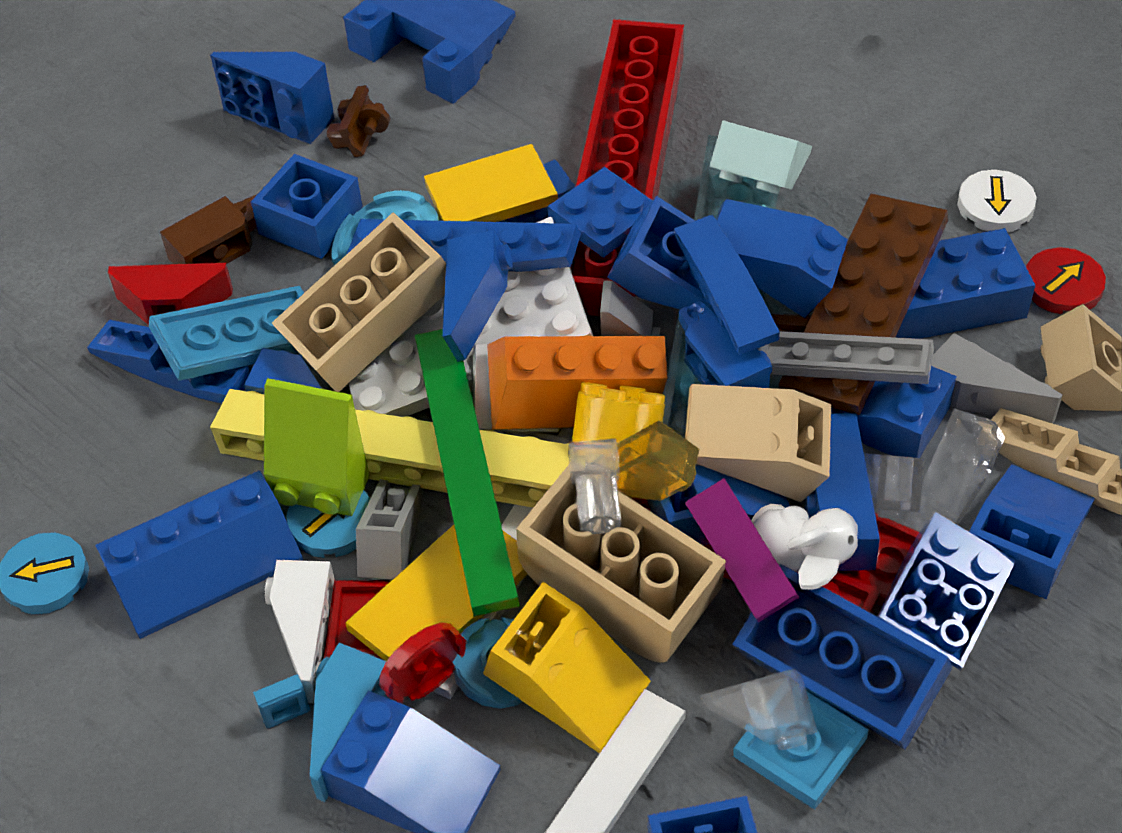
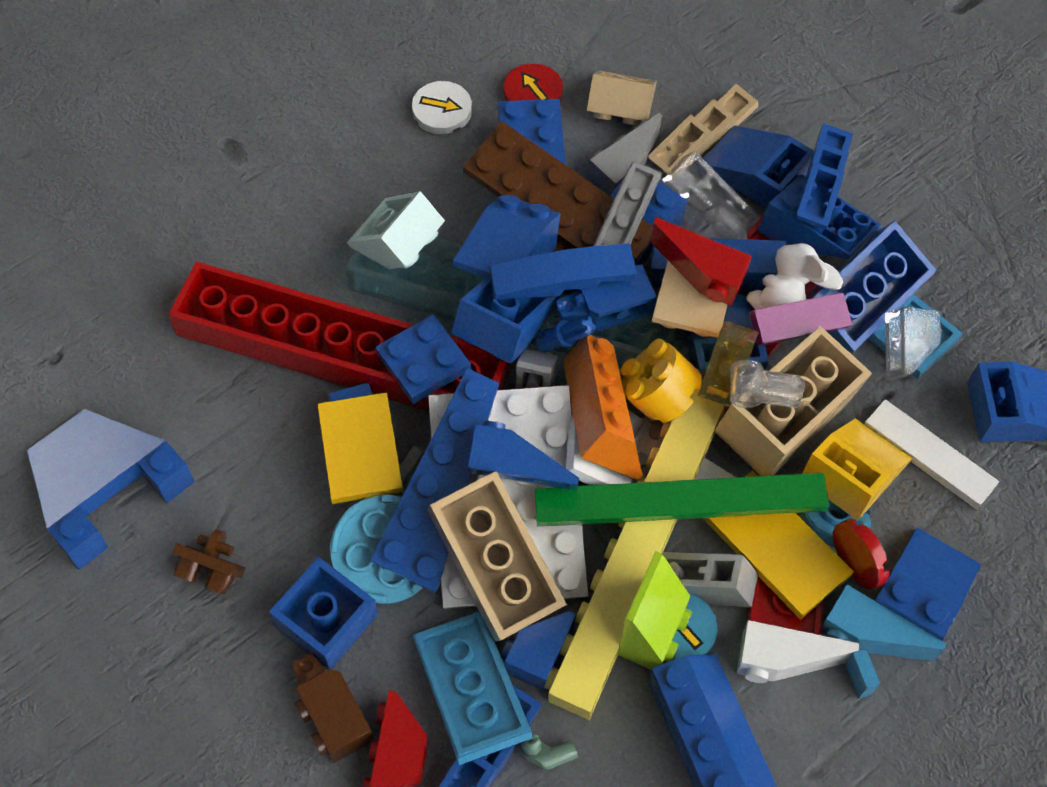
camera: 85 degrees left, 10 degrees up
(176, 412) = (545, 756): none -> sand green arm
(276, 91) = (158, 626): blue slope -> none
(663, 322) = (565, 334): none -> blue axle
(772, 413) = (704, 263): none -> red slope
(1002, 571) = (824, 176): none -> blue slope

